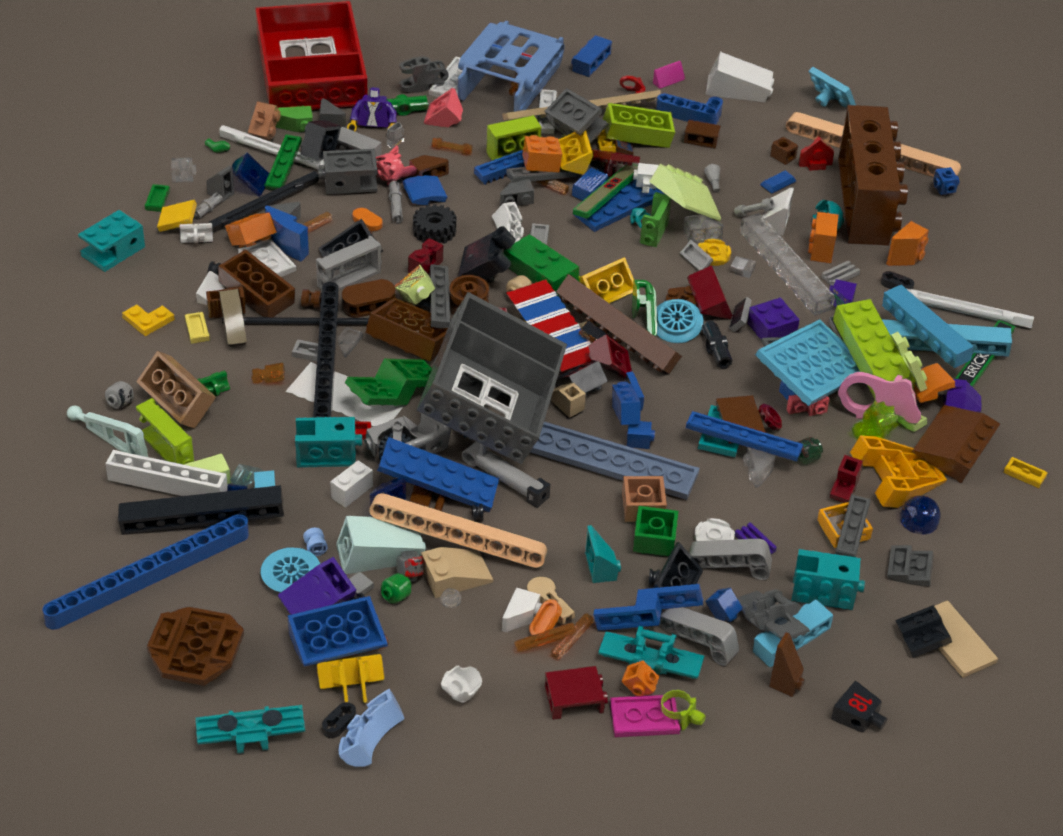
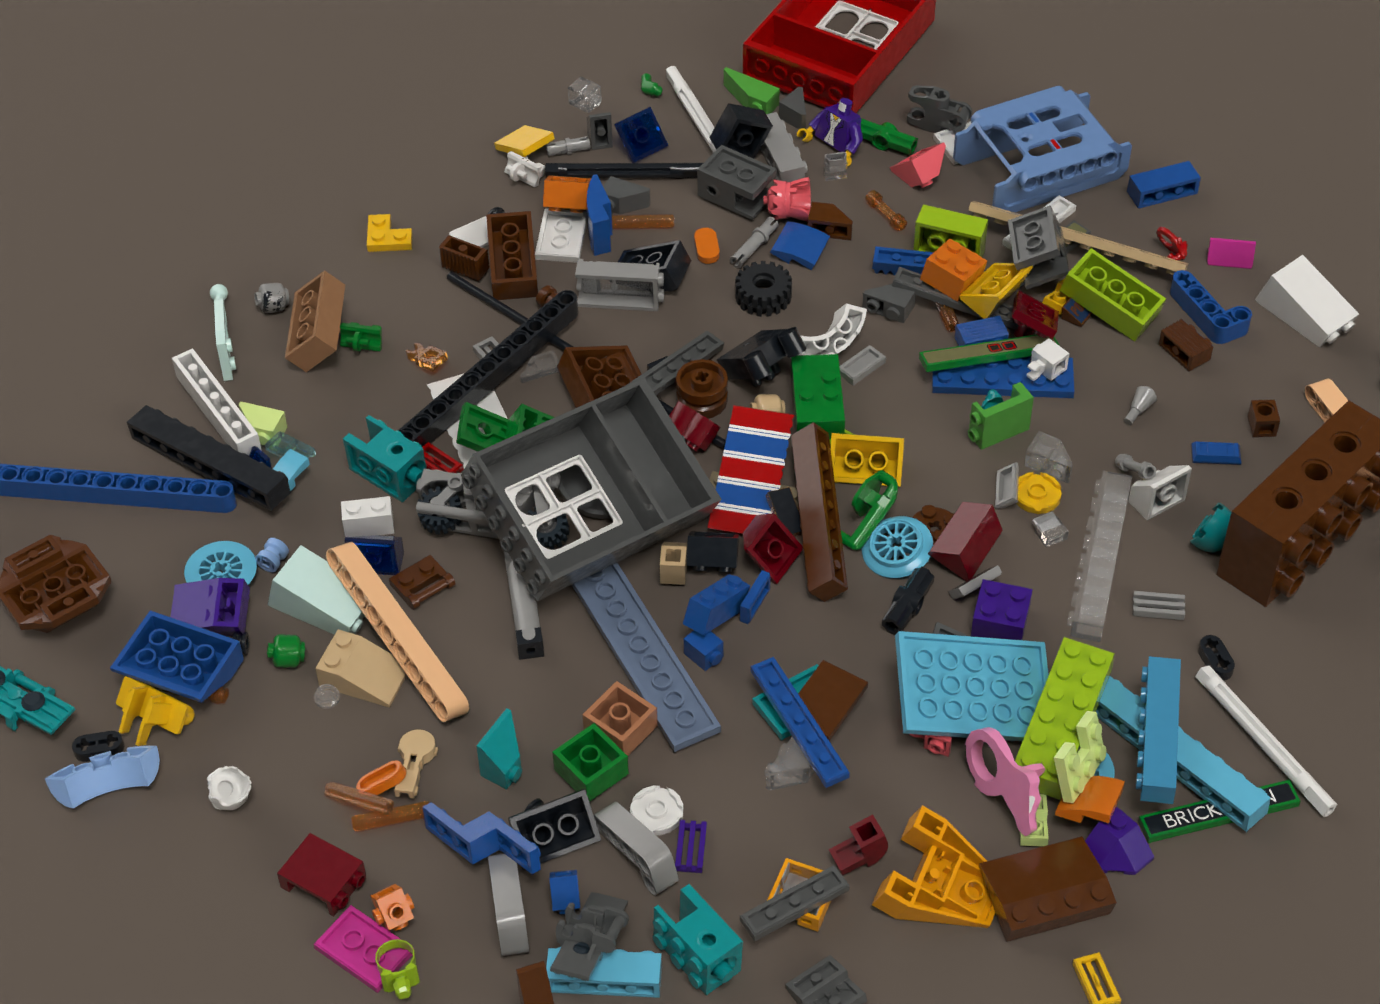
camera: 45 degrees right, 5 degrees up
(112, 240) = (435, 134): teal torso -> none
(157, 197) = (534, 112): green tile -> none
(165, 434) = (256, 360): lime door -> none
(197, 327) = (419, 269): light yellow tile -> none
(233, 317) = (447, 277): dark tan slope -> none
(264, 121) = (712, 82): nougat brick -> none
(283, 162) = (685, 138): green tile -> none
(361, 583) = (265, 625): light grey tile -> none
(366, 297) = (604, 328): reddish brown brick -> none
(410, 564) = (319, 635): dark grey head -> none
(415, 286) = (652, 345): yellowish green torso -> none
(422, 256) = (719, 314): dark red brick -> none
(438, 474) = (446, 560): blue plate -> none
(477, 512) = (449, 624): black bush -> none
(521, 609) = (368, 752): white slope -> none
(660, 661) = (431, 897): teal piece -> none
(685, 190) = (1062, 403): yellowish green slope -> none
(770, 416) = (868, 709): dark red gear -> none
(811, 450) = (864, 785): clear green head -> none
(816, 155) = (1287, 440): red plate -> none
(823, 237) = (1176, 549): orange brick -> none
(843, 292) = (1124, 632): dark purple slope -> none
(877, 421) = (975, 806): clear neon green hat -> none
(908, 245) = (1269, 619): orange slope -> none
(920, 514) = (905, 944): clear blue cylinder -> none

